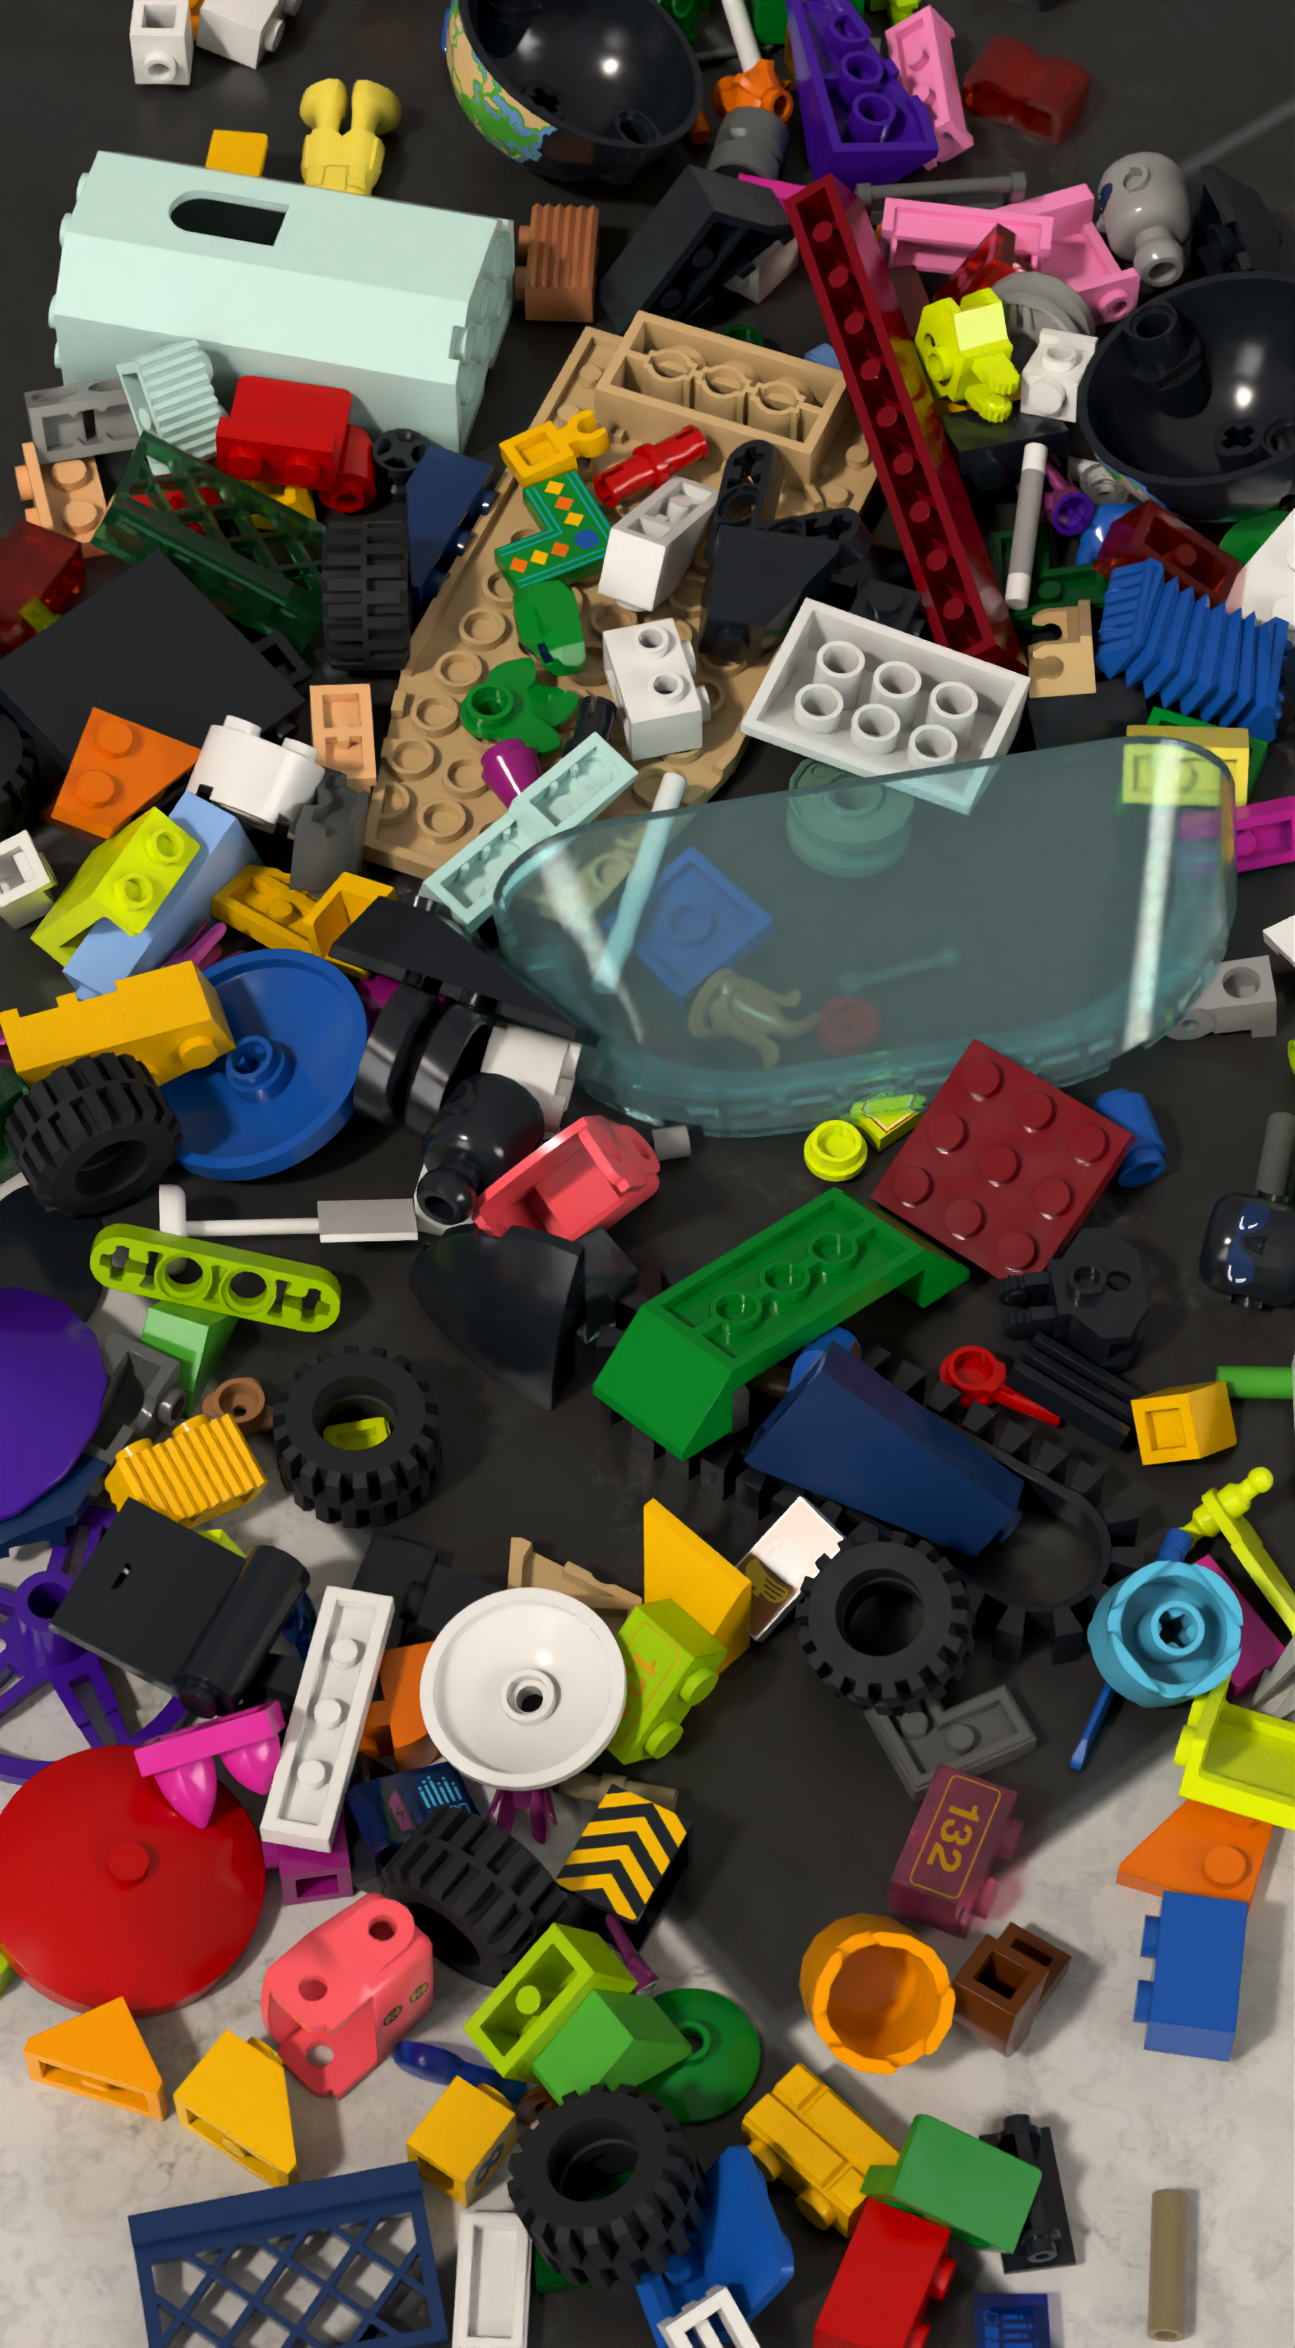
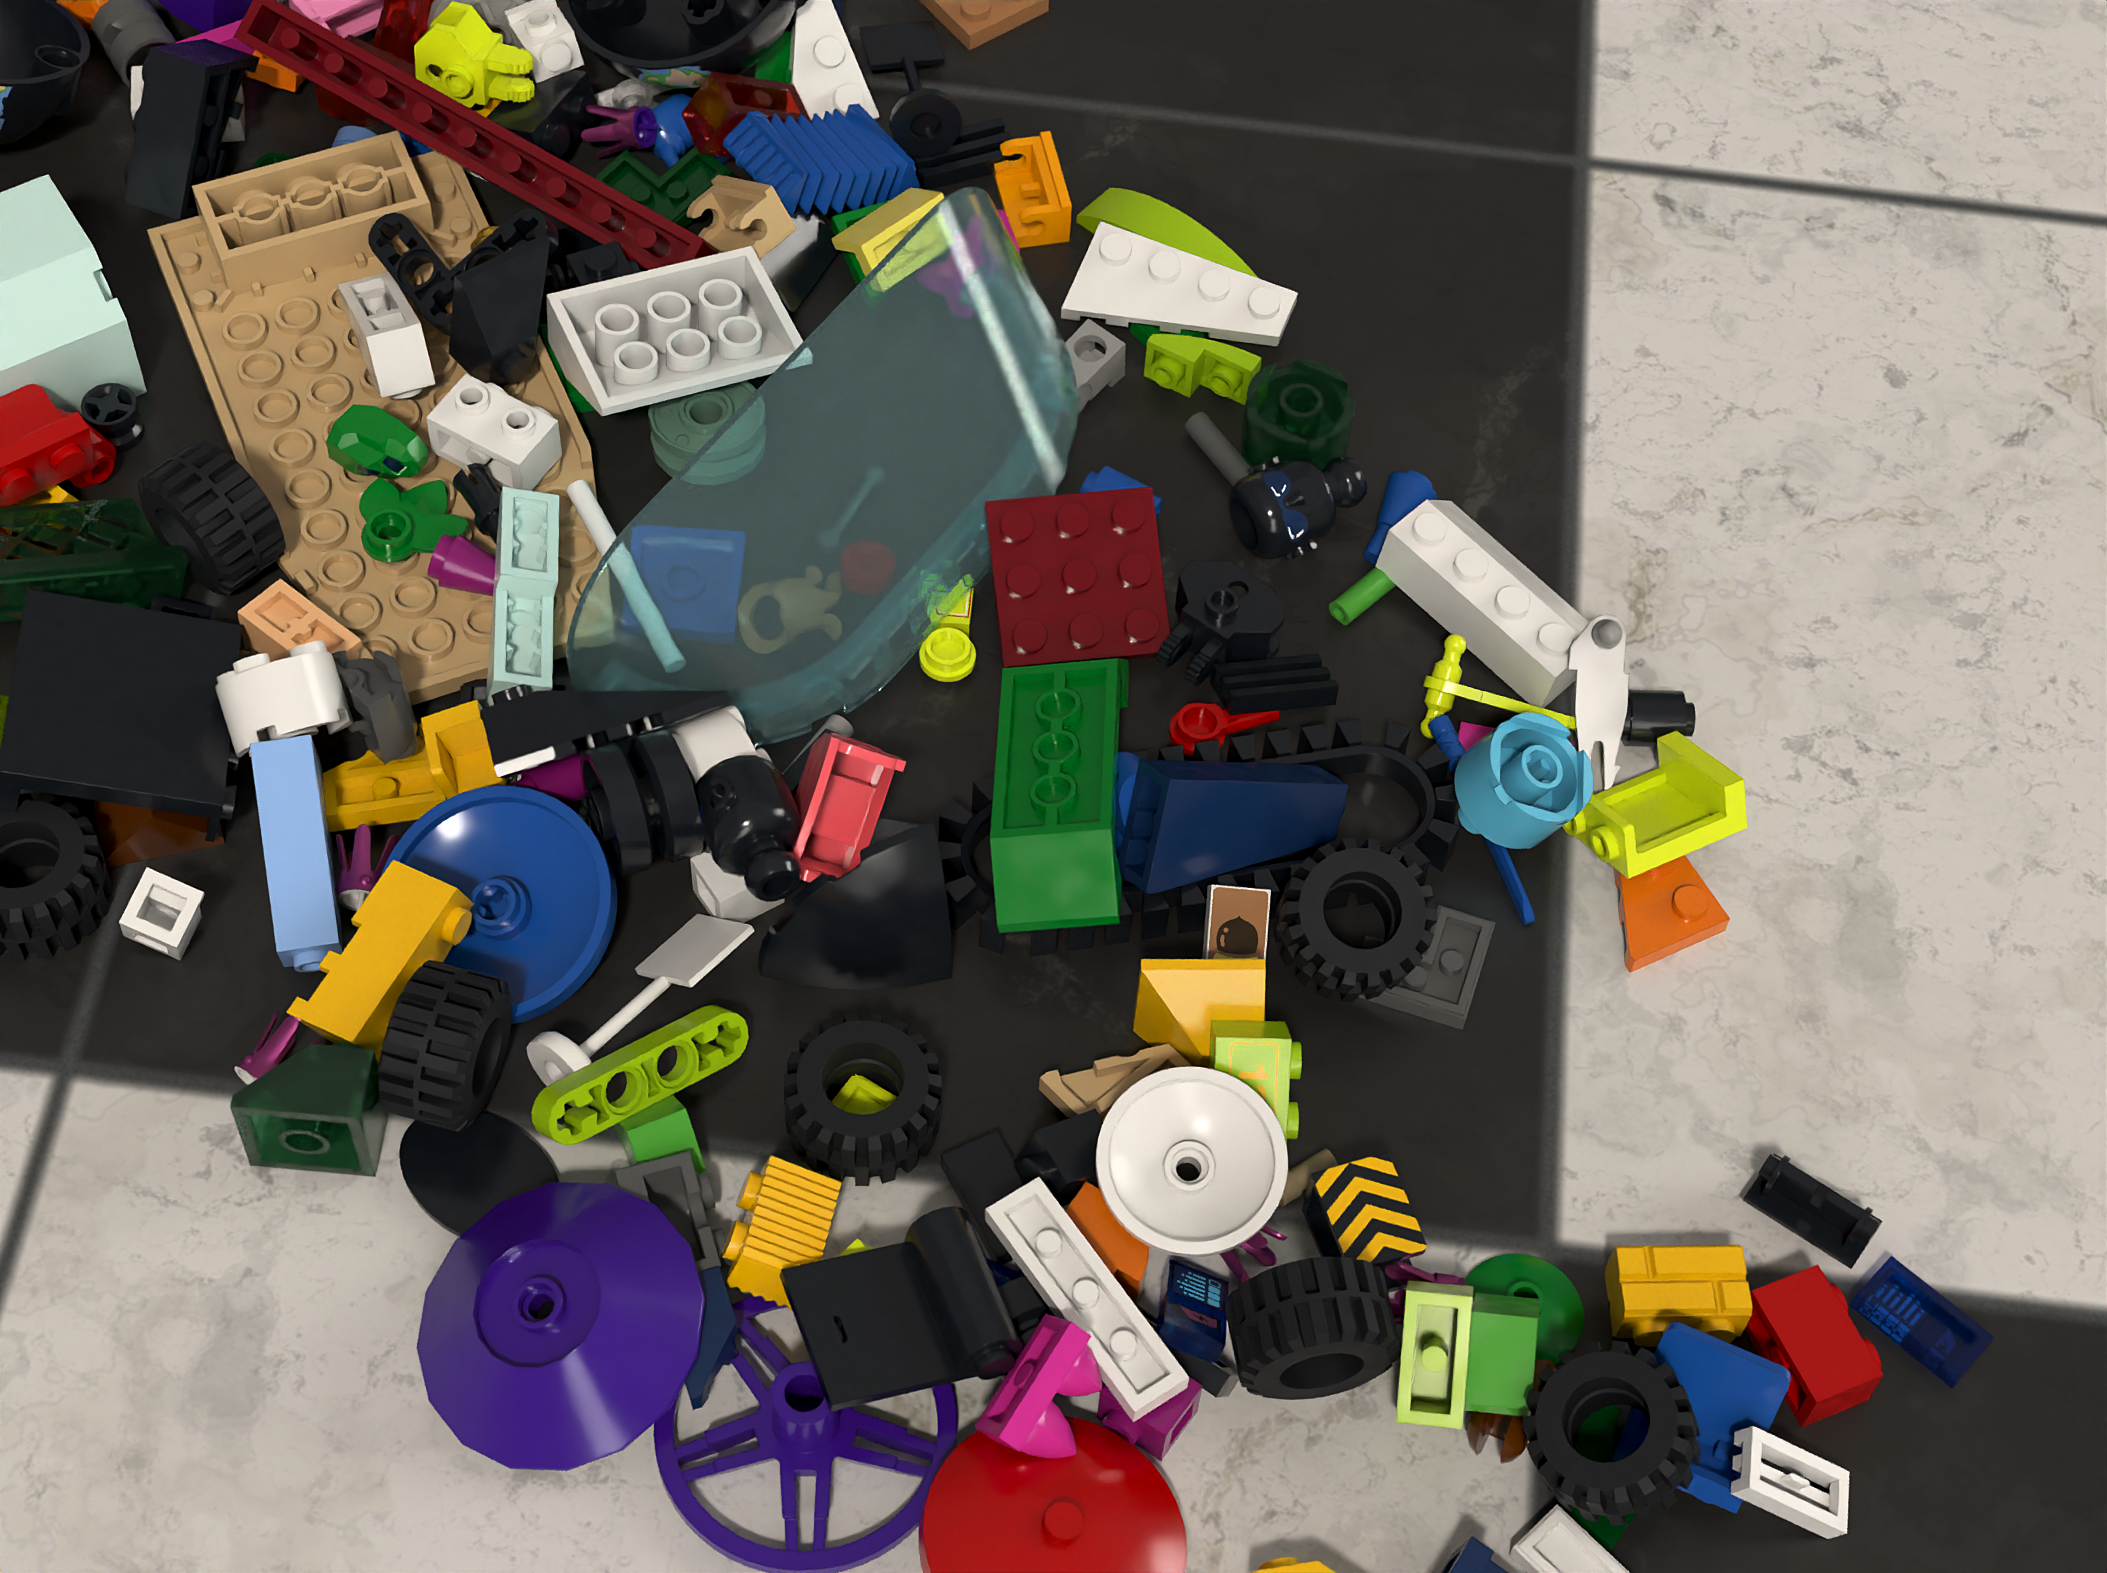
camera: 50 degrees left, 0 degrees up
(118, 773) = (175, 773): orange wing -> none
(119, 881) = (253, 854): neon yellow panel -> none
(241, 1394) = (744, 1139): medium nougat plate -> none
(349, 1988) = (1307, 1464): coral piece -> none
(442, 508) = (180, 411): dark blue slope -> none
(442, 2066) = (1404, 1460): clear blue piece -> none
(463, 2139) = (1466, 1497): yellow brick -> none
(551, 452) = (231, 332): yellow plate -> none
(560, 263) = (93, 199): nougat brick -> none
(570, 538) = (315, 383): green tile -> none
(650, 466) = (317, 288): red pin -> none
(876, 1993) = (1614, 1157): light orange cylinder -> none
(954, 1851) = (1534, 1034): clear pink brick -> none
(958, 2185) = (1798, 1231): green panel -> none
(1006, 1987) = (1671, 1089): reddish brown brick -> none
(1026, 526) = (623, 154): light grey bar -> none
(1167, 2265) = (1928, 1174): dark tan piece -> none
(1184, 1422) = (1356, 652): yellow panel -> none
(1194, 1975) = (1756, 982): blue brick -> none

